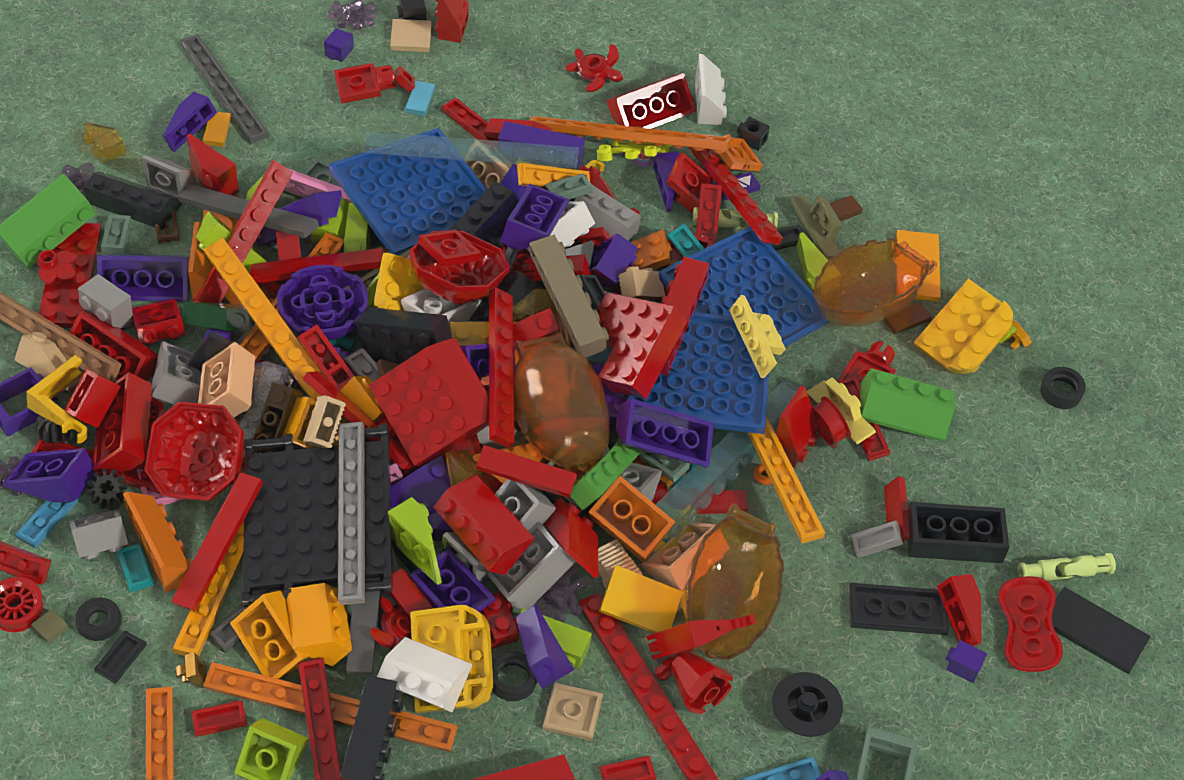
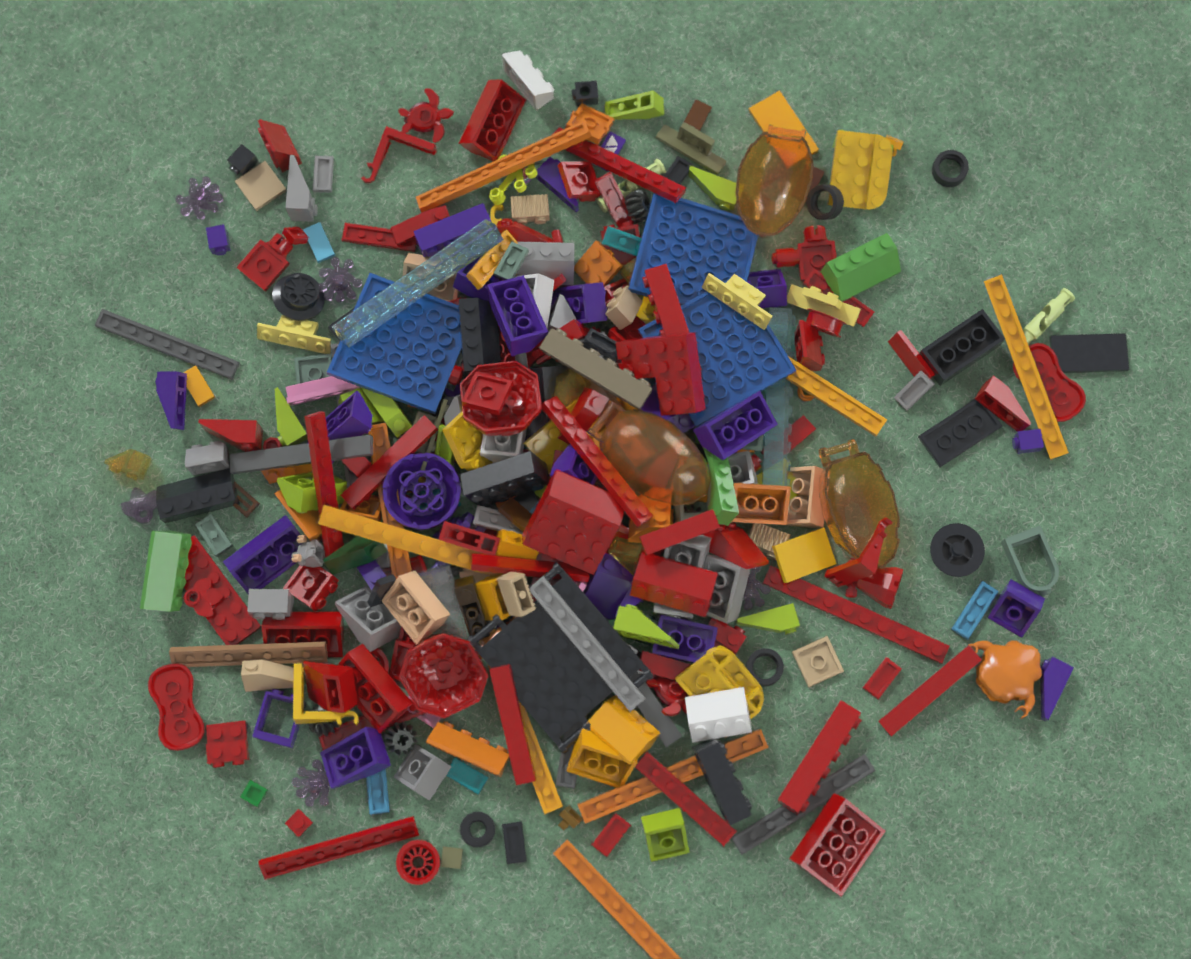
camera: 30 degrees left, 25 degrees up
(178, 292) = (309, 553): none -> light grey piece
(331, 139) = (295, 334): none -> light yellow bracket
(363, 114) = (298, 297): none -> black wheel
(408, 126) = (339, 280): none -> clear purple animal
(434, 50) = (299, 200): none -> light grey slope
(470, 58) = (323, 174): none -> light grey tile
(541, 648) = (775, 640): dark purple slope -> none
(542, 67) = (401, 137): none -> red hinge
(627, 180) = (530, 209): none -> tan brick
(725, 227) = (637, 205): none -> pearl dark grey gear
(792, 168) = (637, 106): none -> lime slope
(795, 369) = (772, 285): none -> dark purple slope
(835, 356) = (785, 257): none -> red brick
(918, 342) = (812, 199): none -> black tyre
(1012, 593) = (1026, 367): none -> light orange plate

